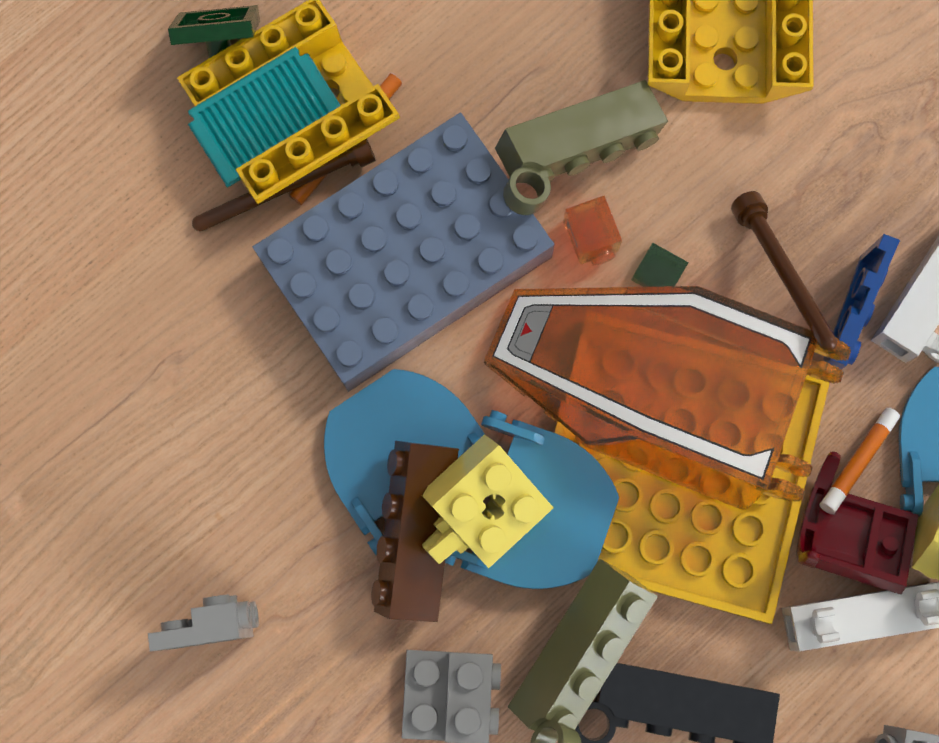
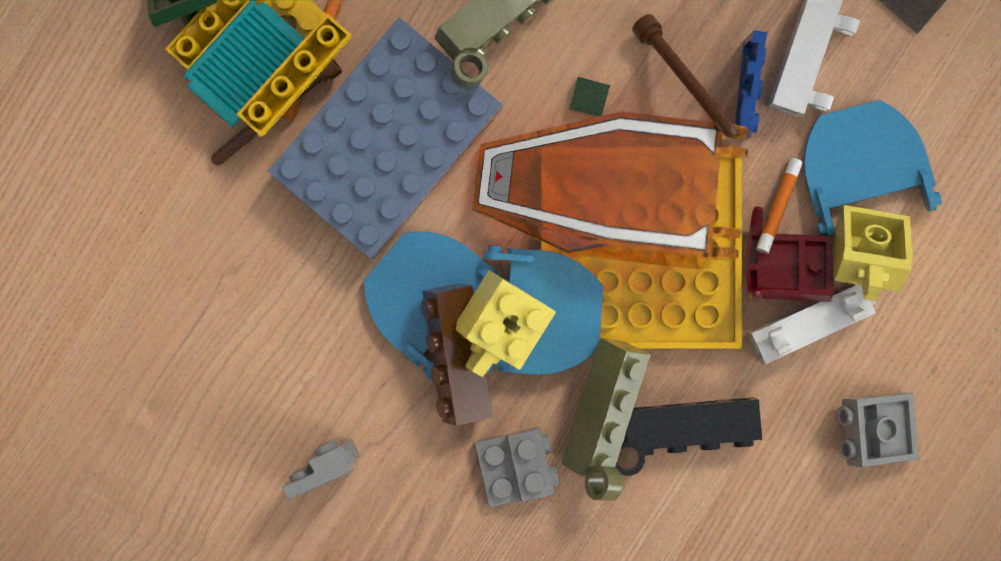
camera: 20 degrees left, 10 degrees up
(592, 231) = (529, 82): clear orange brick -> none

